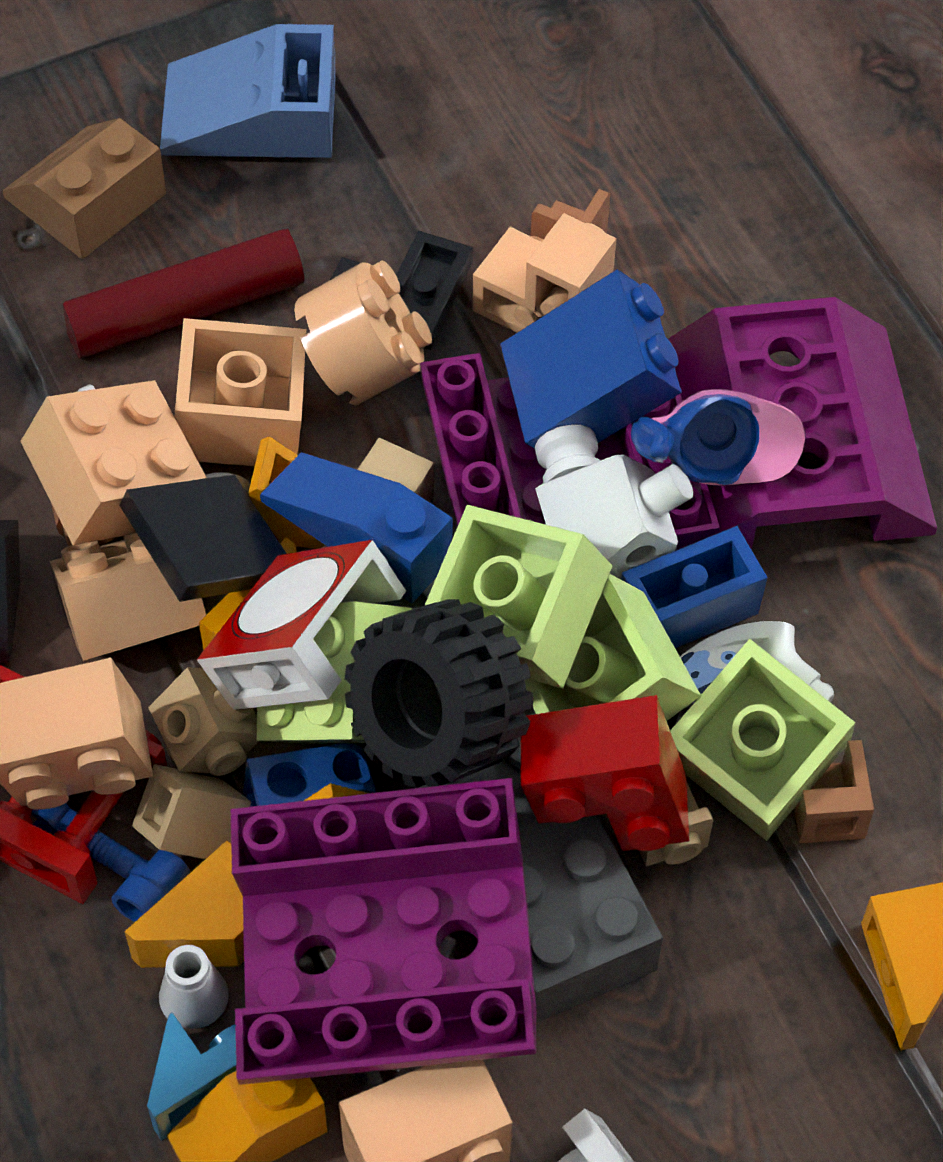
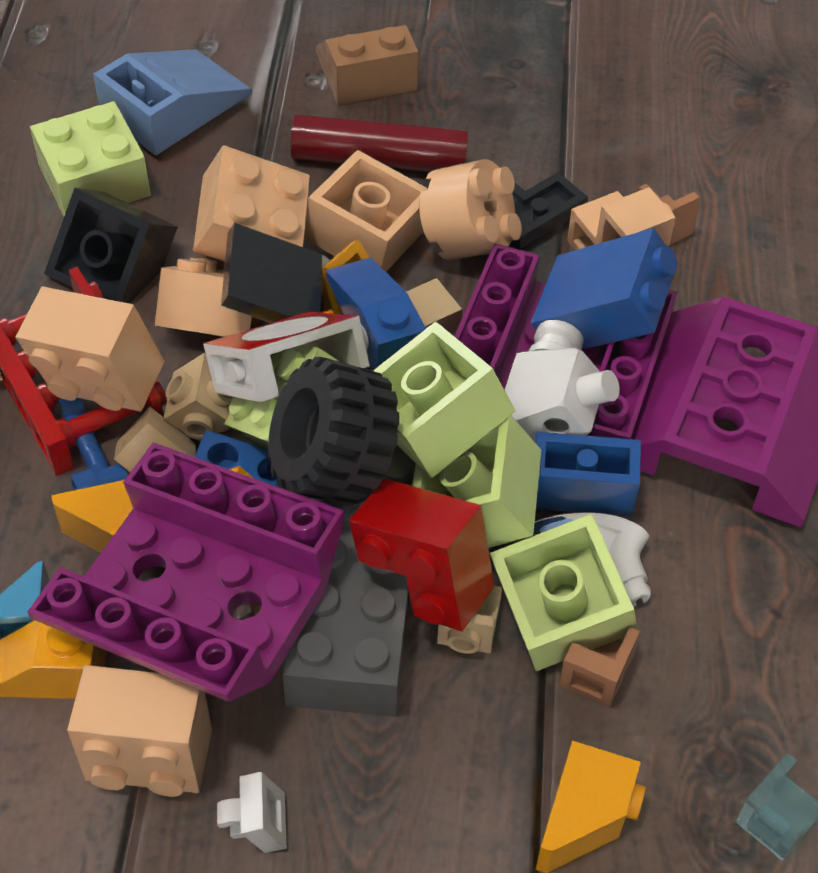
camera: 30 degrees right, 5 degrees down
(192, 988) = (71, 547): white cone -> none
(254, 96) = (511, 54): medium blue slope -> none
(723, 438) = (663, 374): blue hair -> none

